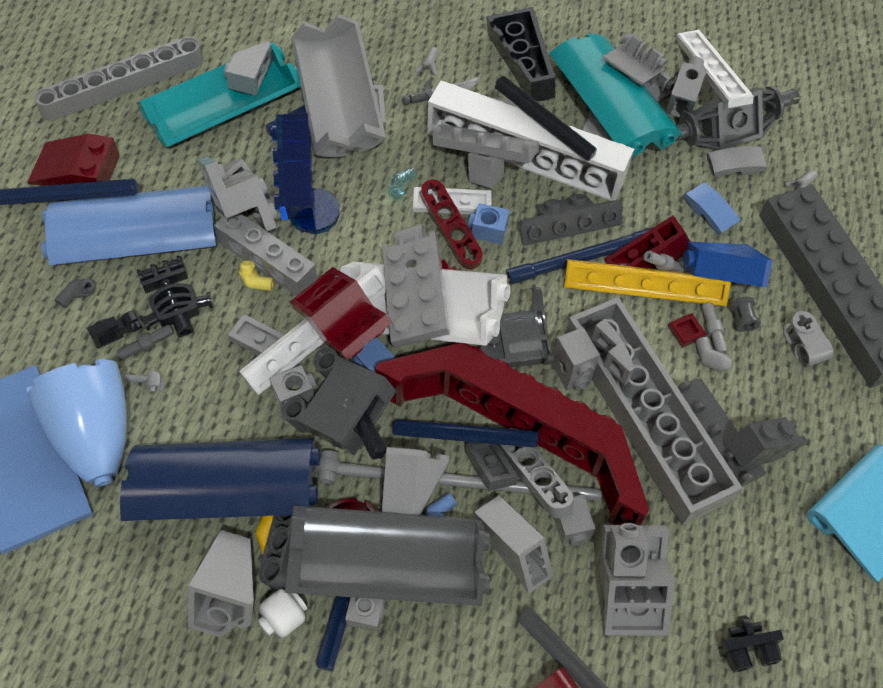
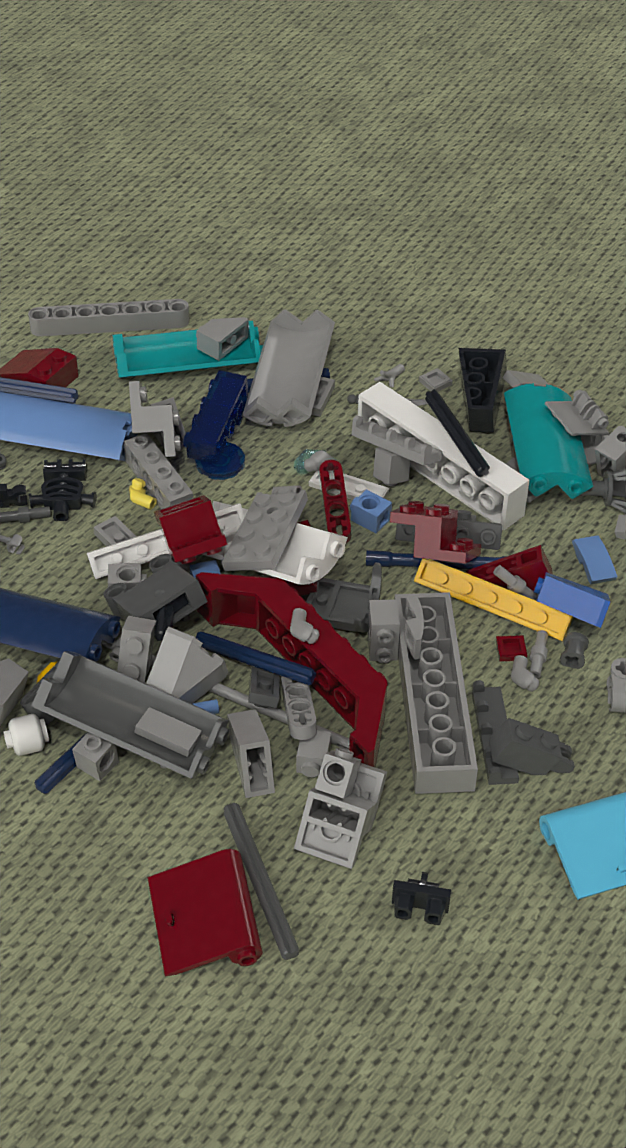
camera: 25 degrees right, 15 degrees down
(352, 474) = (136, 647): none -> light grey brick
(414, 183) = (316, 459): none -> light grey arm
(431, 559) = (168, 731): none -> light grey tile
(473, 55) = (435, 380): none -> light grey tile
(513, 397) = (301, 629): none -> light grey arm
(560, 33) = (518, 378): none -> light grey tile
(575, 242) = (436, 532): none -> dark red bracket

